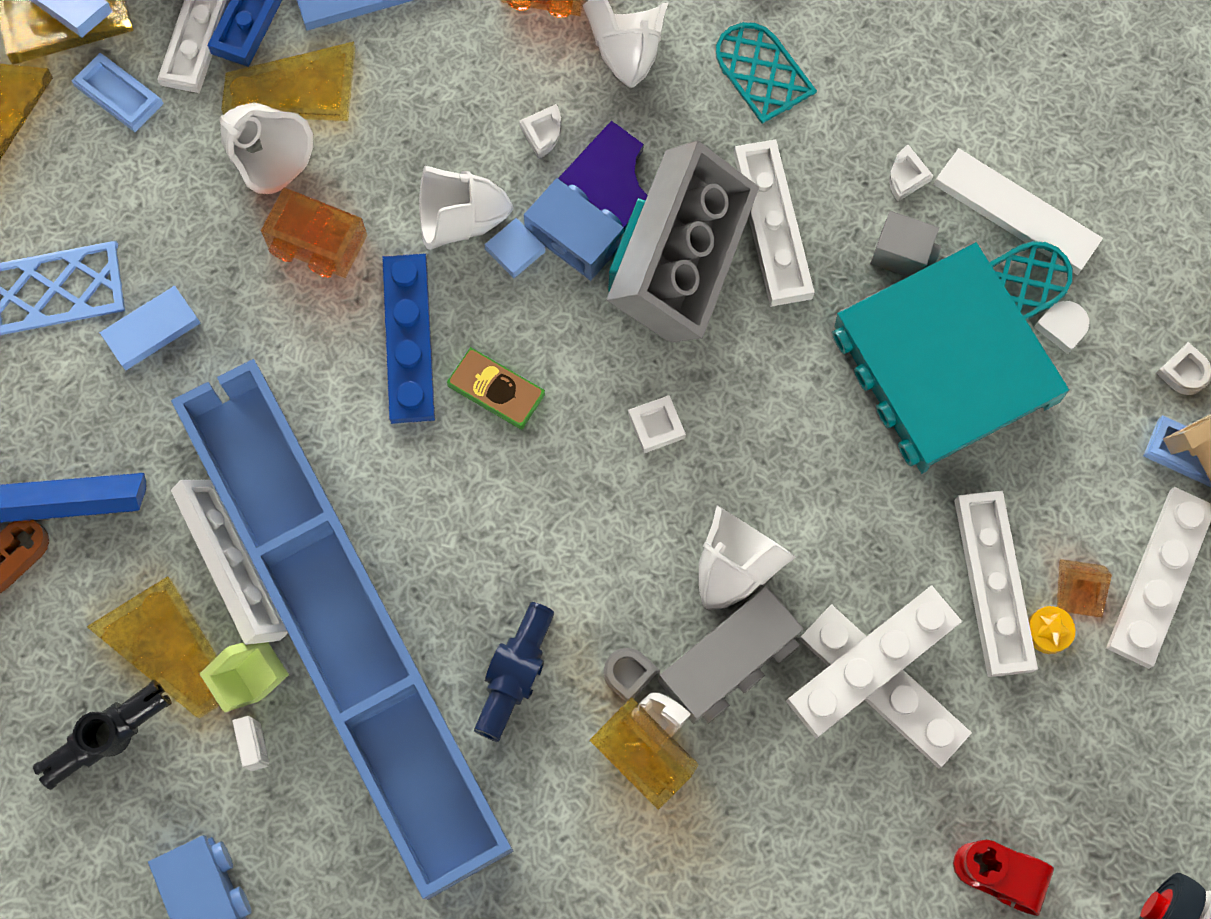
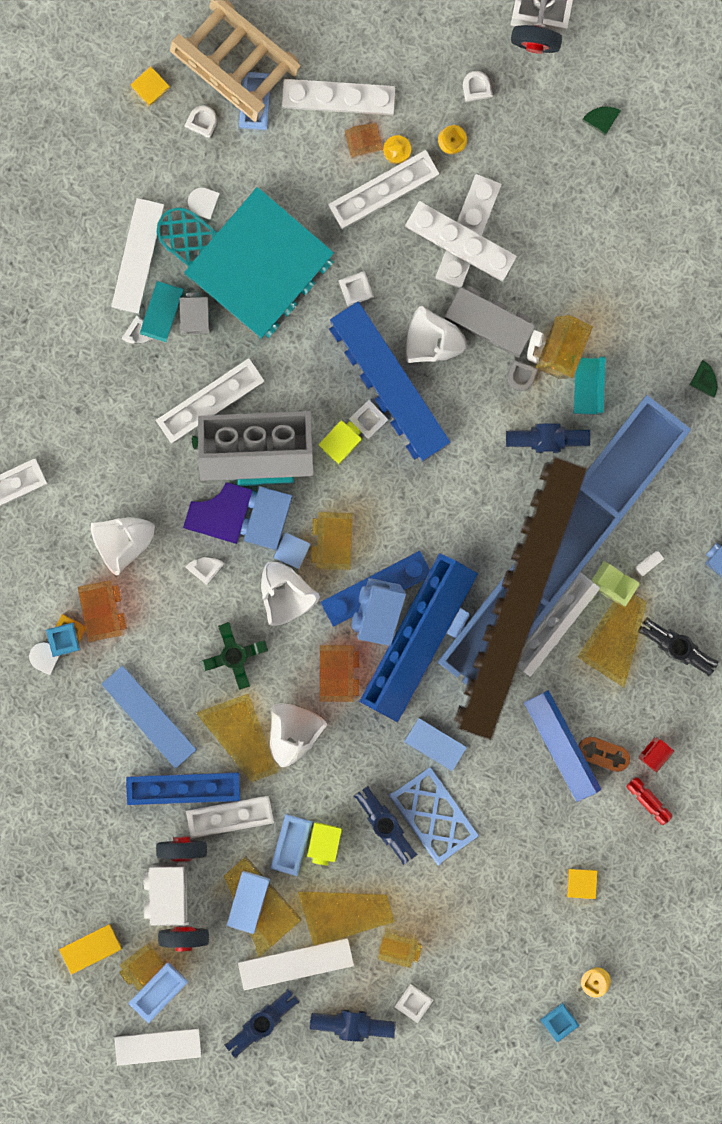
camera: 110 degrees left, 15 degrees up
(54, 213) = (393, 838): none -> dark blue pin
(94, 127) = (324, 843): none -> neon yellow brick
(278, 501) = (521, 598): none -> dark brown brick
(301, 423) = (458, 623): none -> light blue tile
(308, 359) = (418, 637): none -> blue brick
(370, 316) = (378, 611): none -> medium blue brick
(400, 100) = (221, 660): none -> dark green pin
(496, 388) = (386, 522): tile -> none
(501, 302) = (334, 541): none -> clear yellow brick
(568, 770) = (589, 386): none -> teal panel
(639, 368) = (341, 441): none -> neon yellow brick
(699, 470) = (389, 381): none -> blue brick
(794, 68) = (101, 470): teal window -> none
(857, 484) = (356, 288): none -> white tile
(922, 199) = (161, 311): none -> teal tile
(1009, 876) = (545, 127): red piece -> none
(1039, 720) = (452, 139): none -> yellow tile
(1111, 794) = (477, 86): none -> white tile

